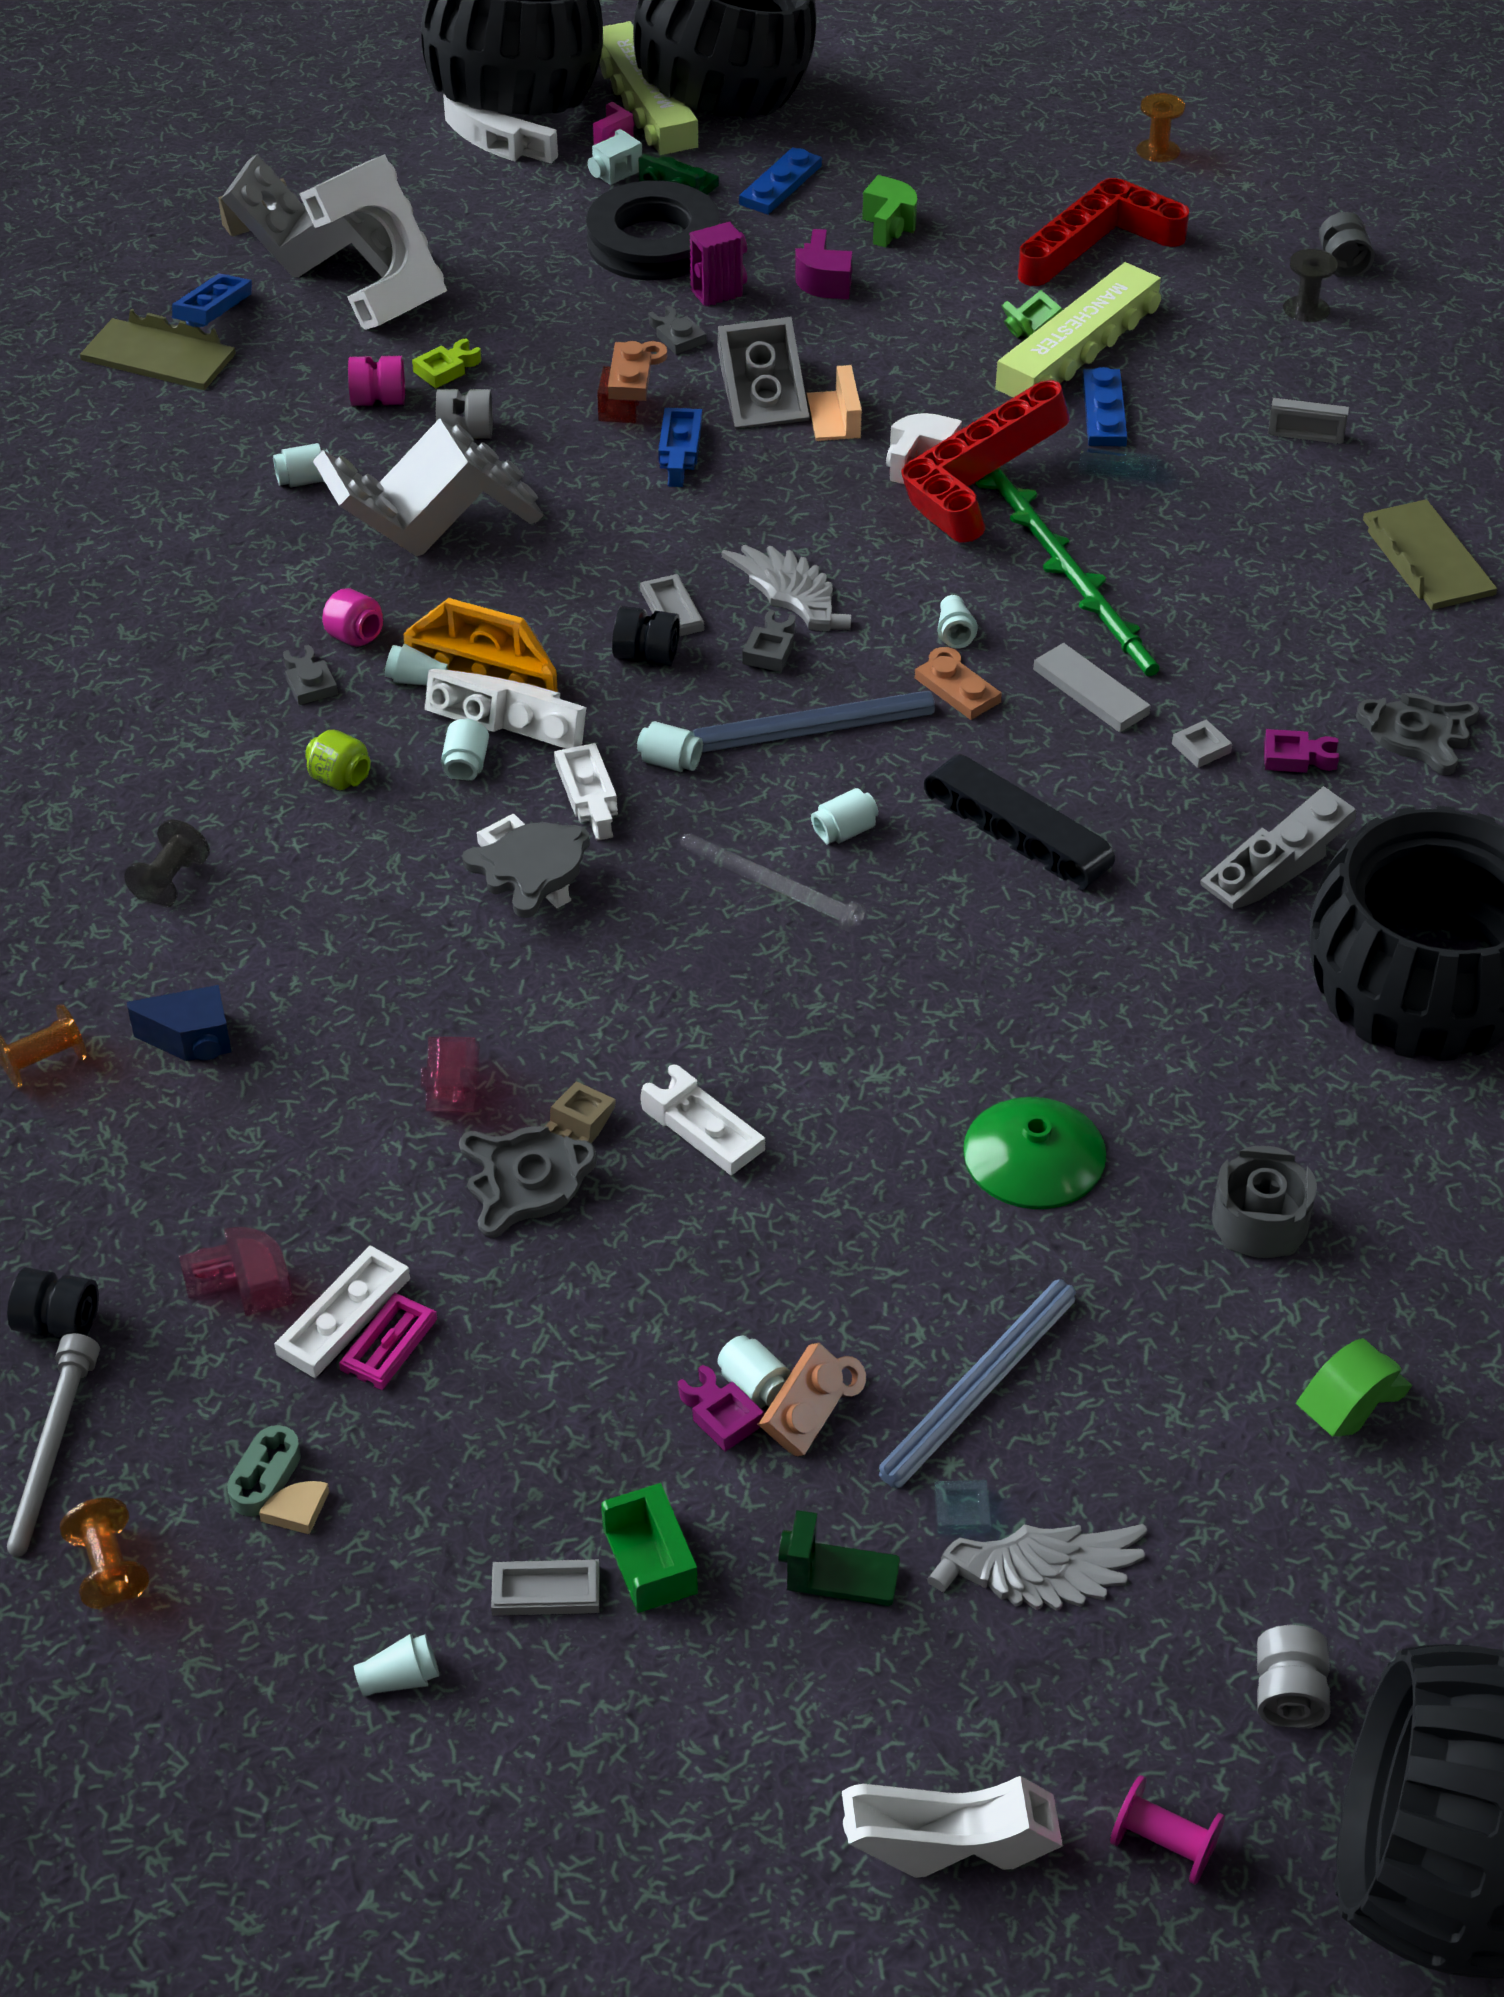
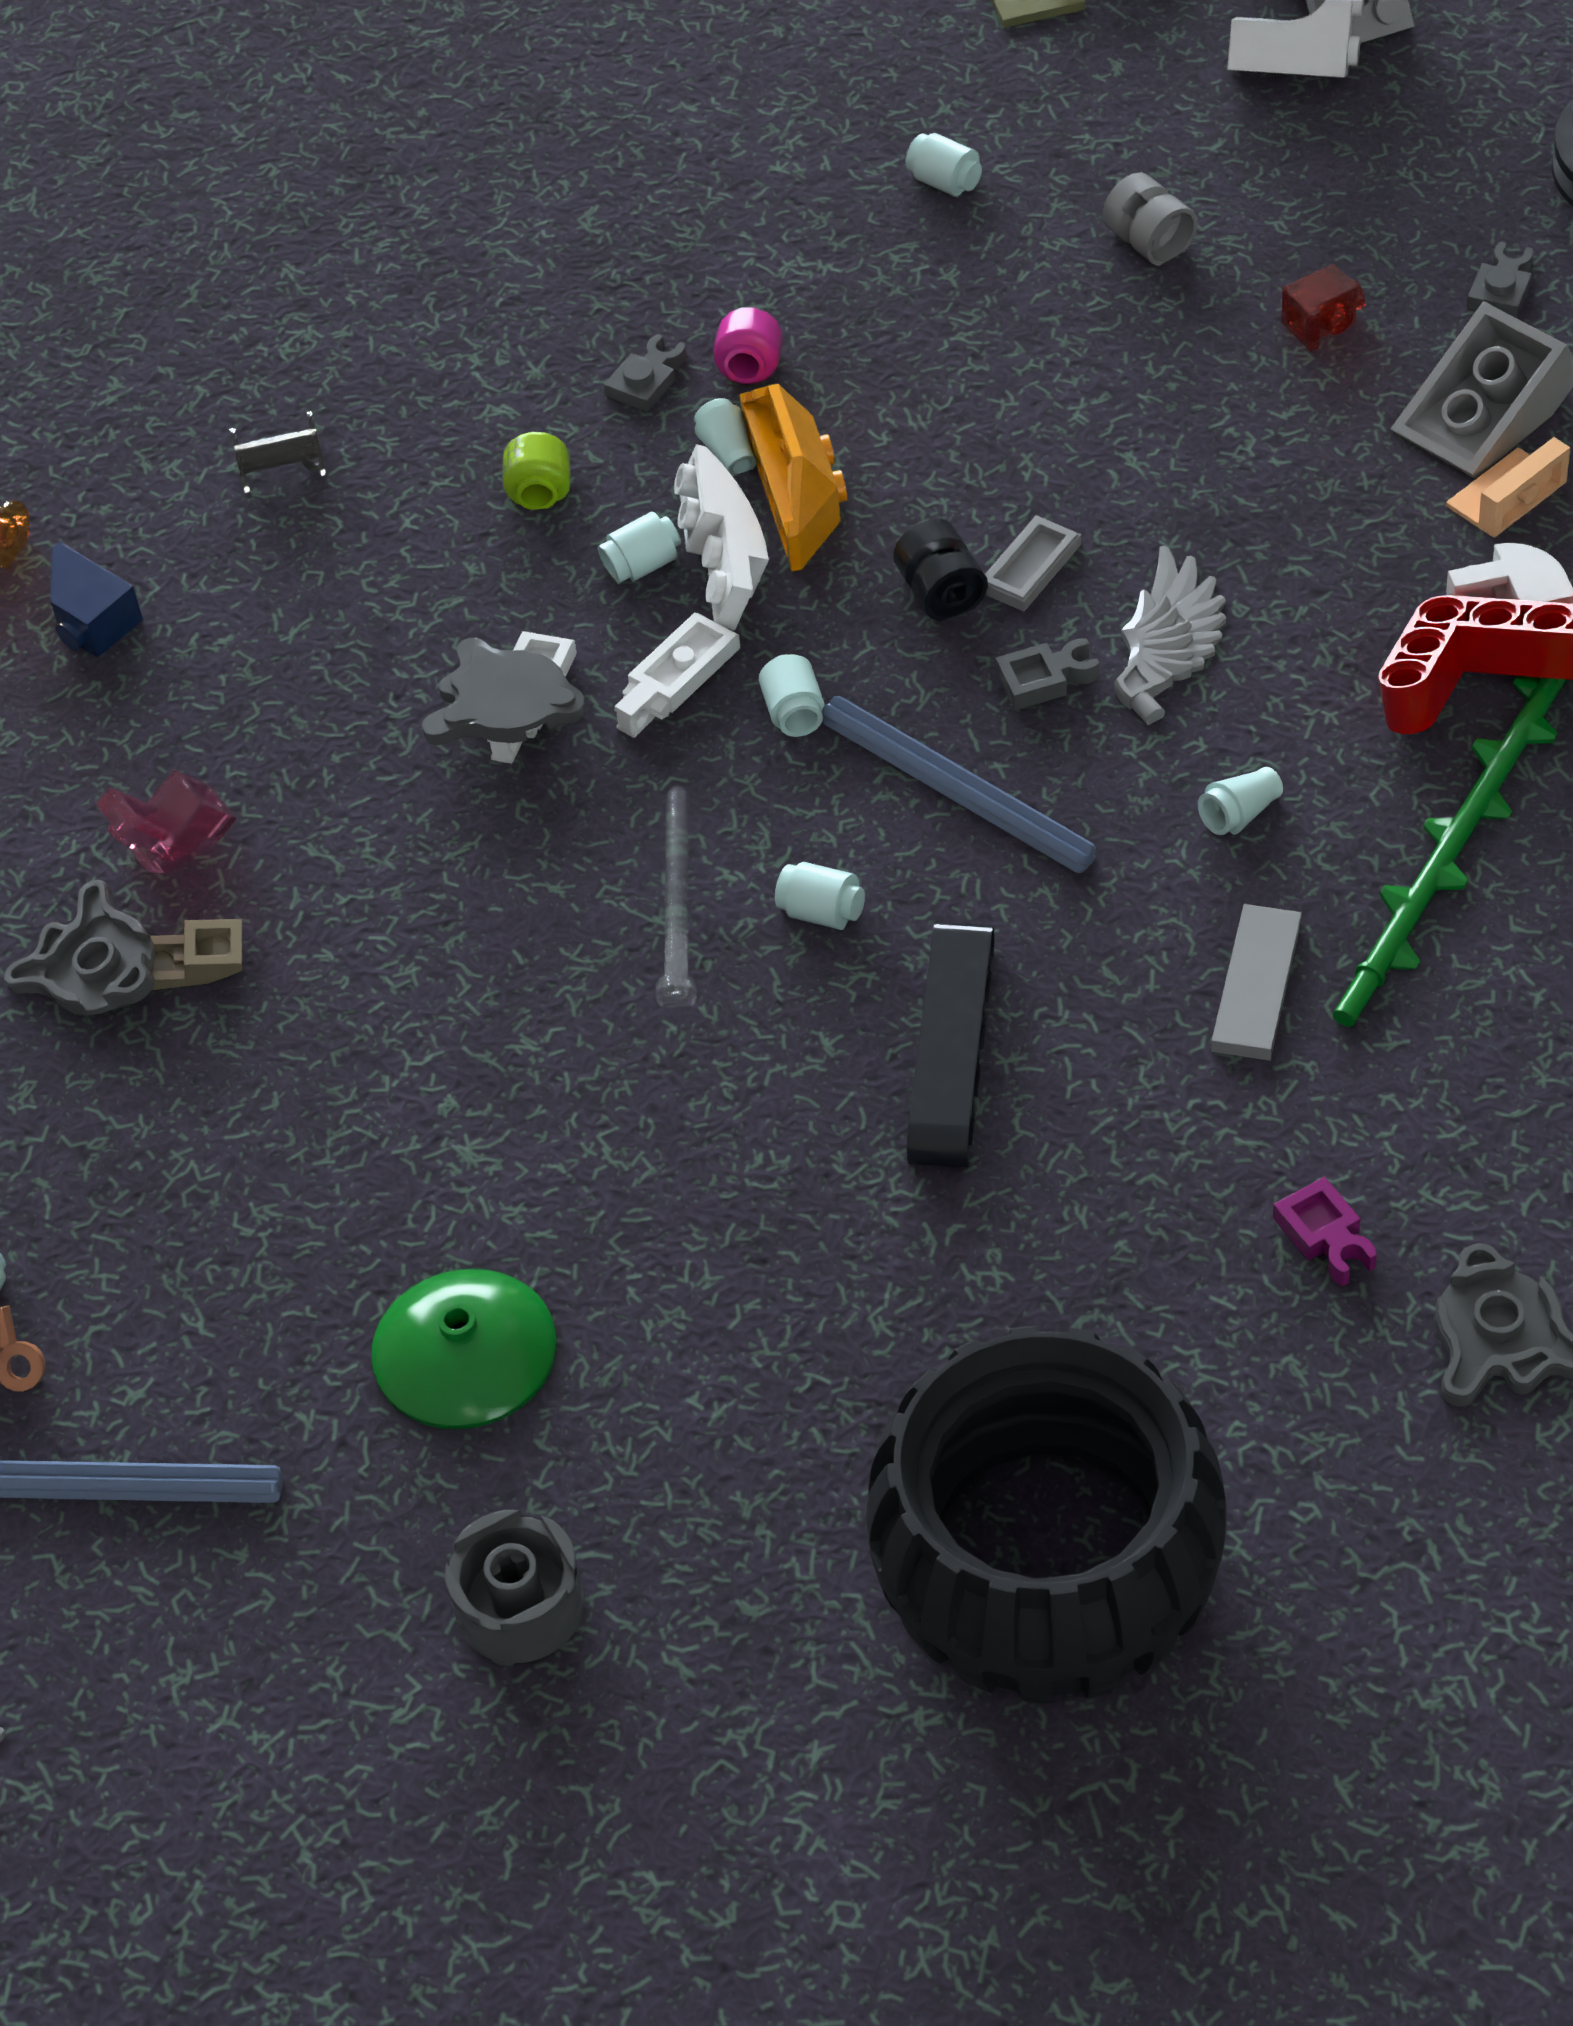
camera: 60 degrees right, 5 degrees up
(376, 380) = (1131, 125): dark pink wheel -> none
(428, 487) = (990, 261): light grey bracket -> none
(445, 365) = (1227, 152): lime plate -> none
(632, 369) = (1346, 286): nougat hinge -> none
(679, 442) = (1300, 402): blue hinge -> none
(702, 1121) = (272, 1050): white plate -> none
(957, 683) = (1143, 862): nougat hinge -> none
(1202, 743) = (1258, 1134): light grey tile -> none
(1283, 853) = (1122, 1309): light grey slope -> none
(1351, 1387) = (306, 1811): bright green brick -> none

